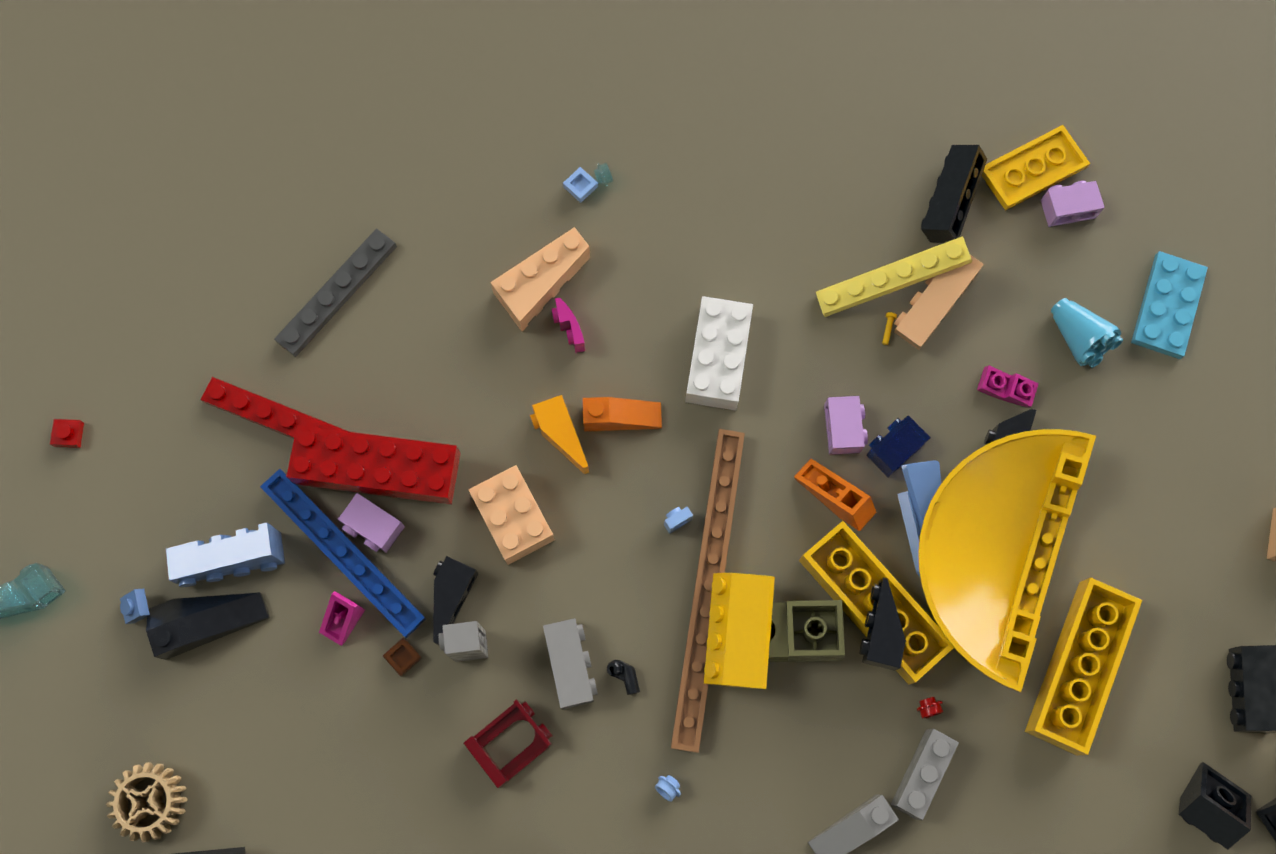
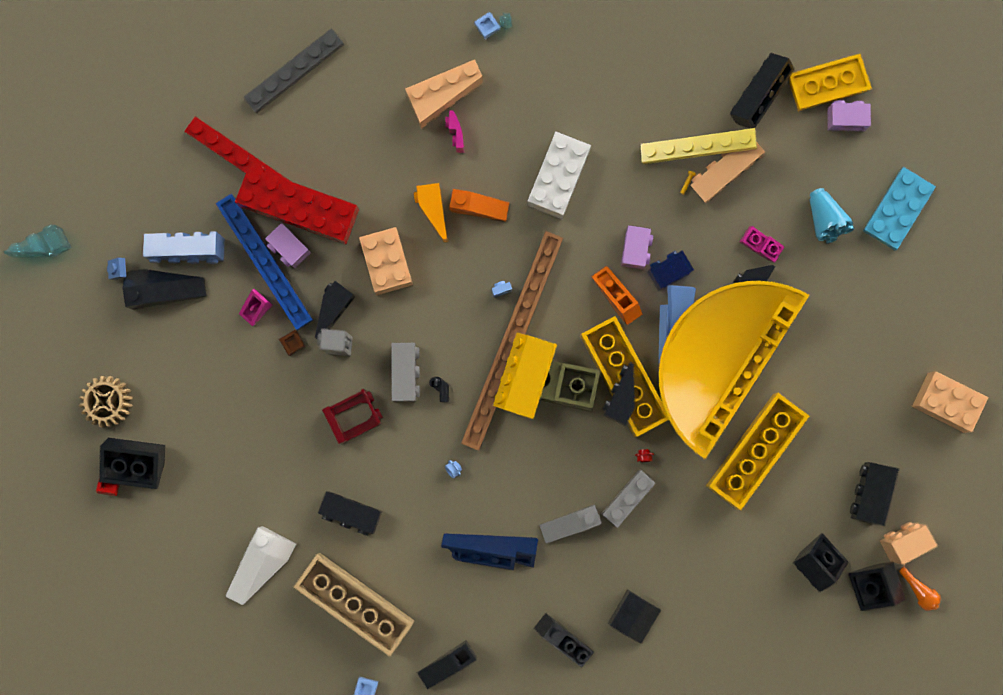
camera: 15 degrees right, 10 degrees up
(67, 433) = (87, 135): red plate -> none

